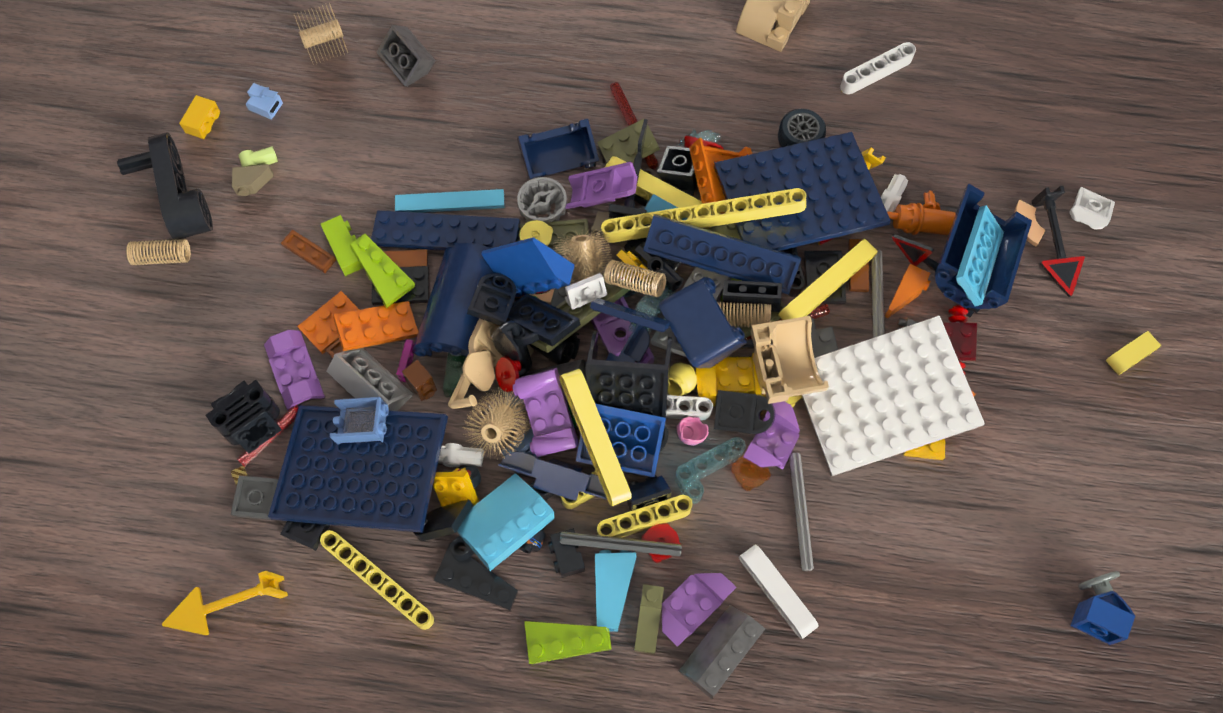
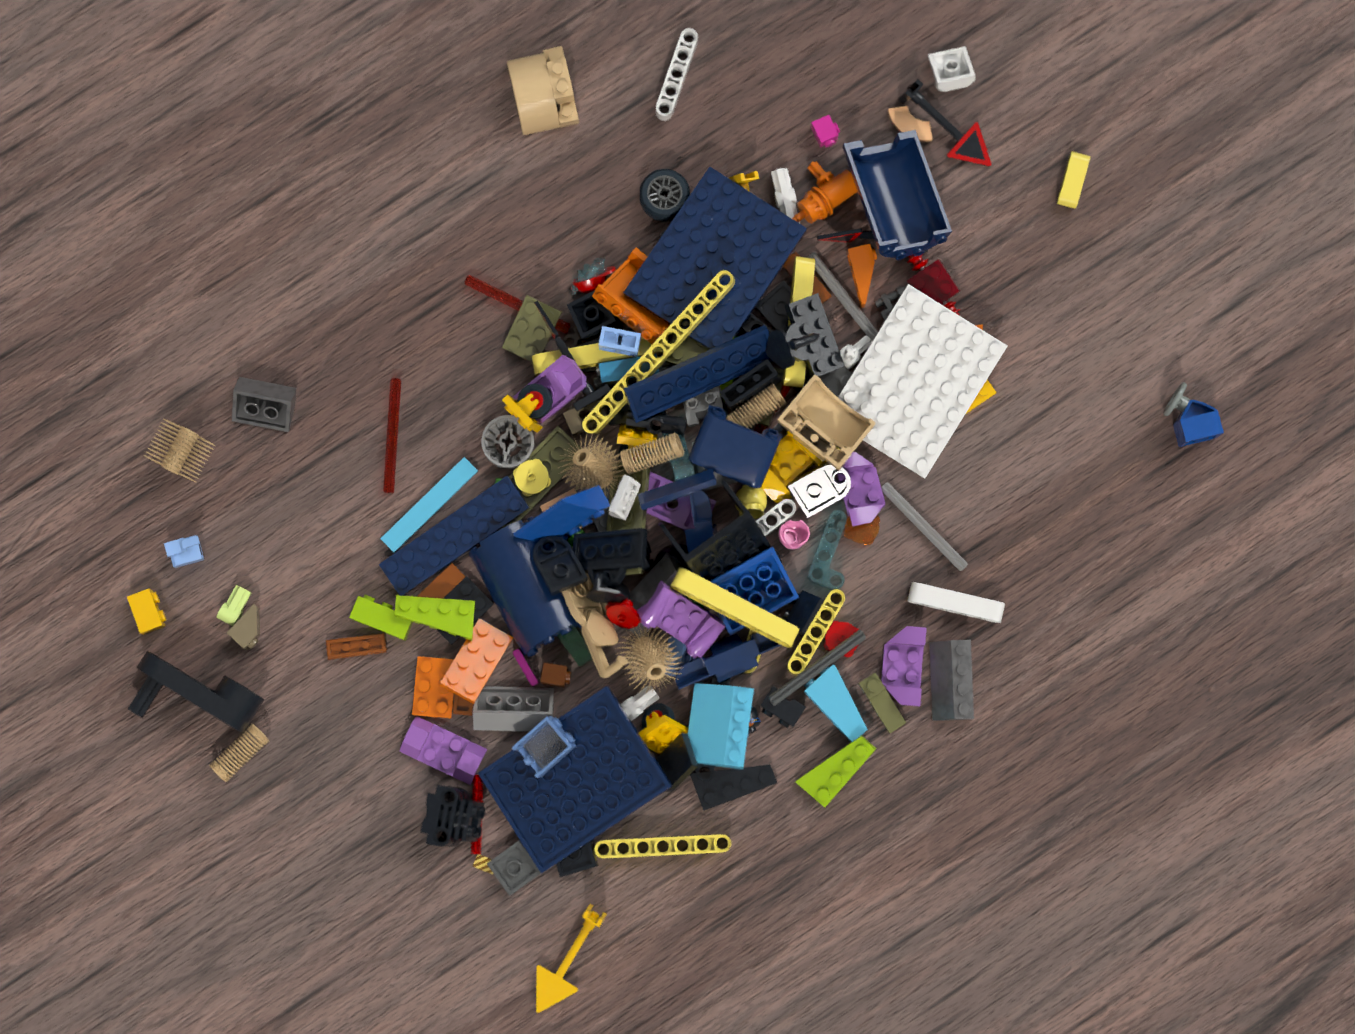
camera: 45 degrees left, 15 degrees up
(468, 140) = (392, 435): none -> clear red axle
(558, 150) = (477, 383): dark blue windscreen -> none
(580, 182) = (532, 403): none -> plate
(681, 187) = (619, 341): none -> light blue brick
(830, 293) = (809, 336): none -> plate
(848, 337) = (852, 354): none -> white axle
(958, 178) = (825, 131): none -> dark pink brick
(980, 256) = (900, 202): medium azure plate -> none

